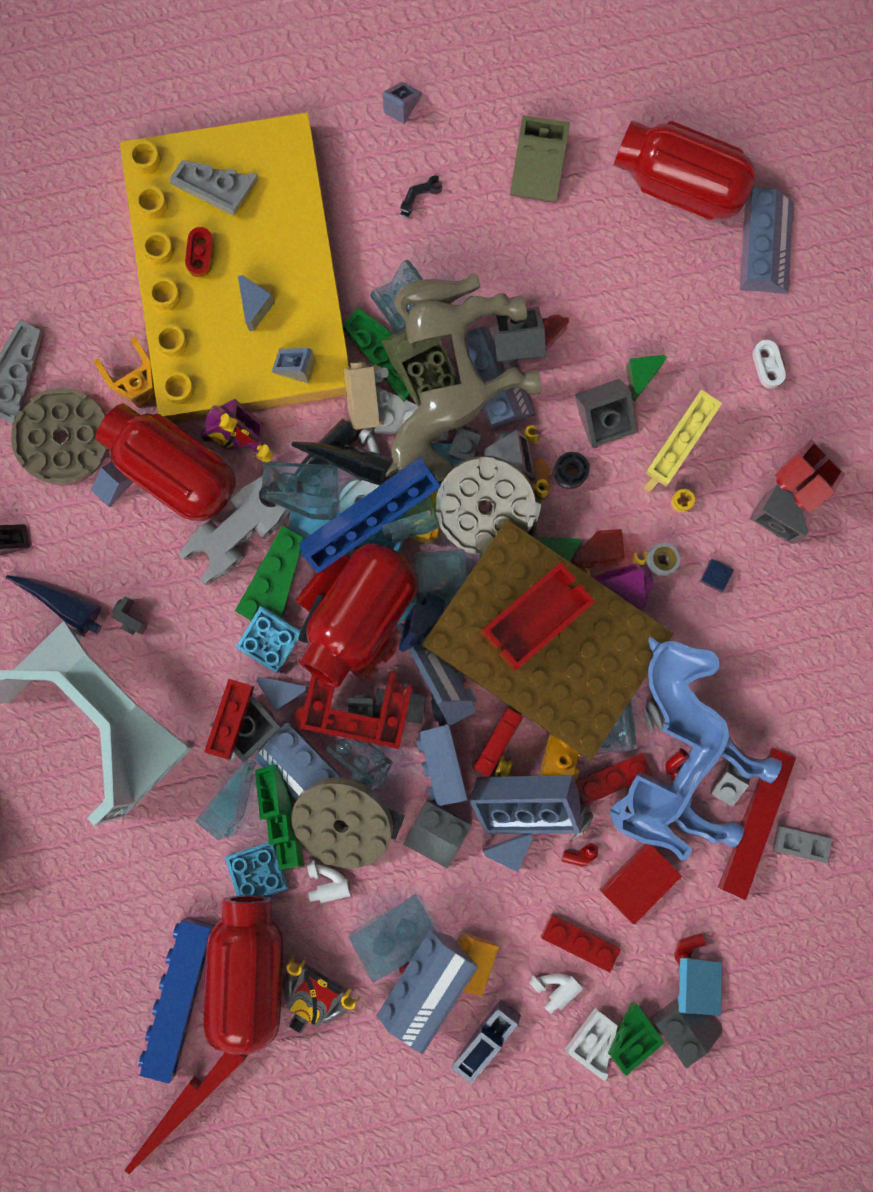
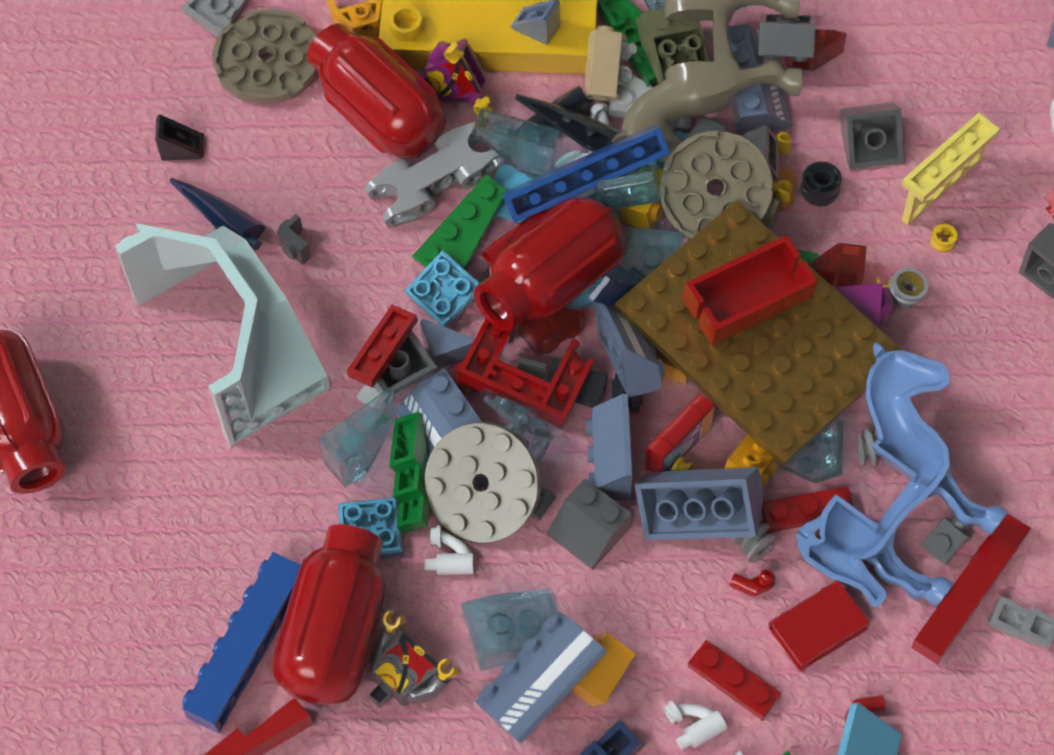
camera: 15 degrees right, 20 degrees down
(110, 484) = (309, 109): sand blue slope -> none
(510, 852) = (669, 559): sand blue slope -> none
(641, 371) = (922, 102): green slope -> none
(675, 761) = (882, 500): red arm -> none
(716, 575) = (969, 320): dark blue plate -> none

